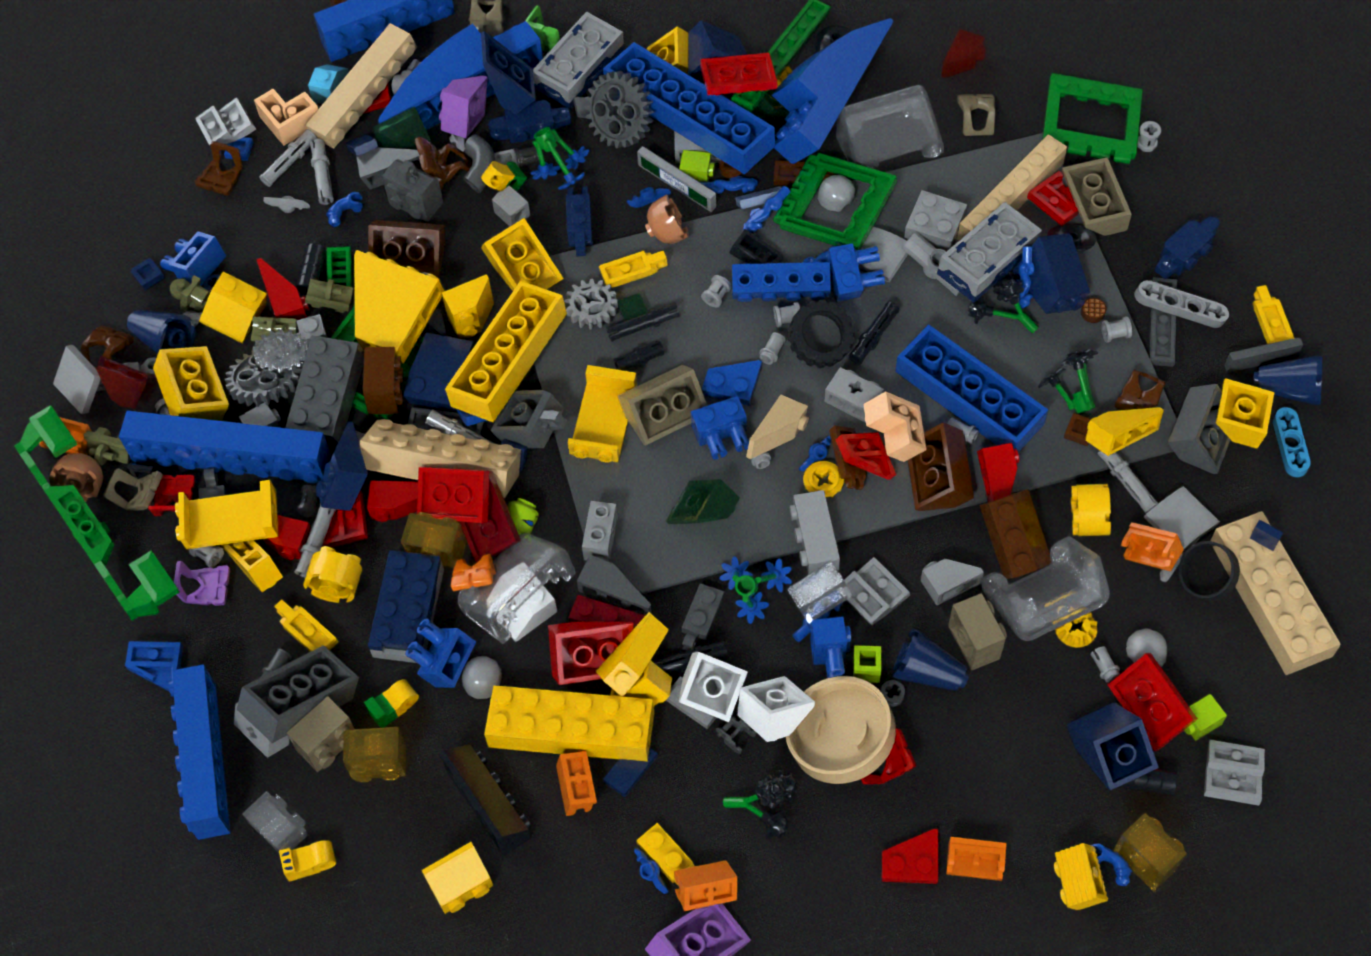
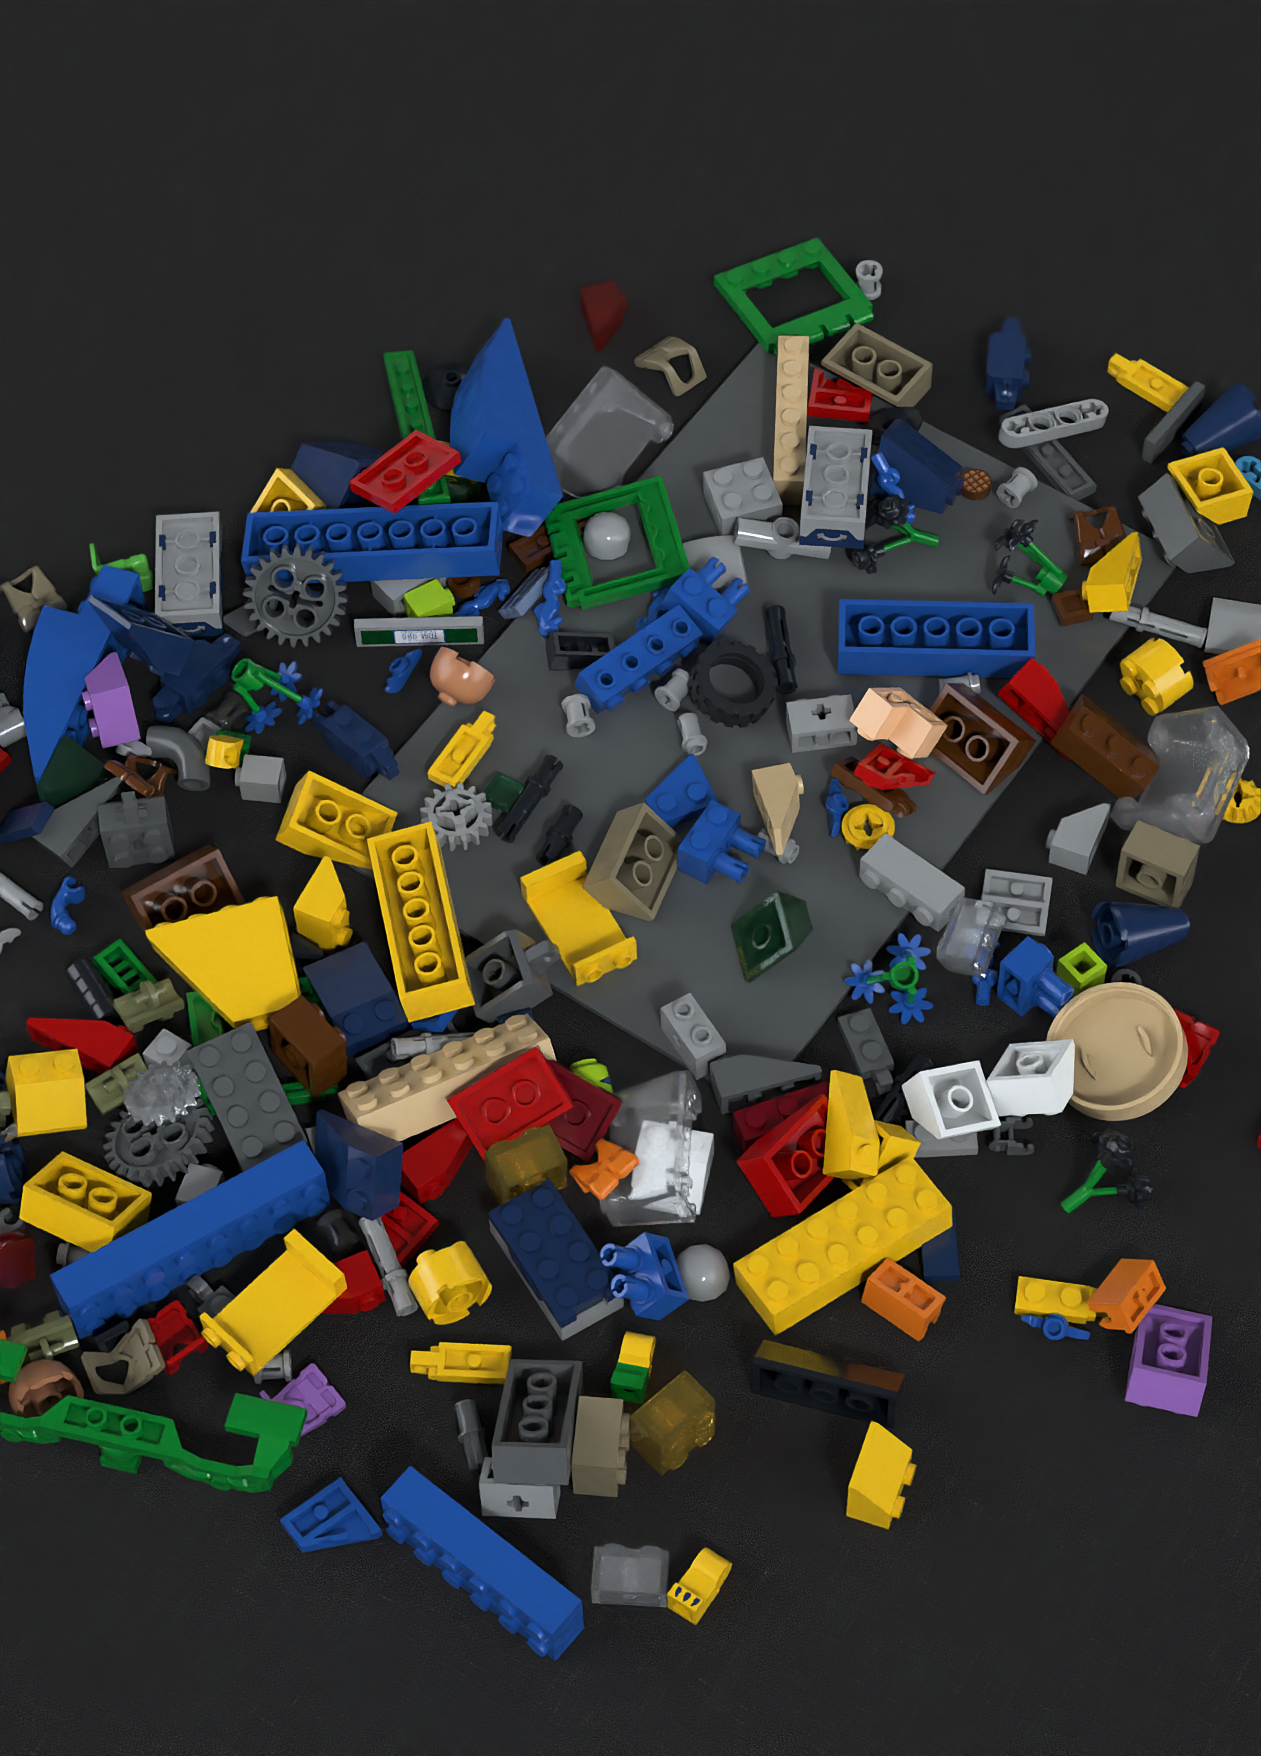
camera: 40 degrees left, 5 degrees down
(254, 563) = (342, 1337): yellow slope -> none

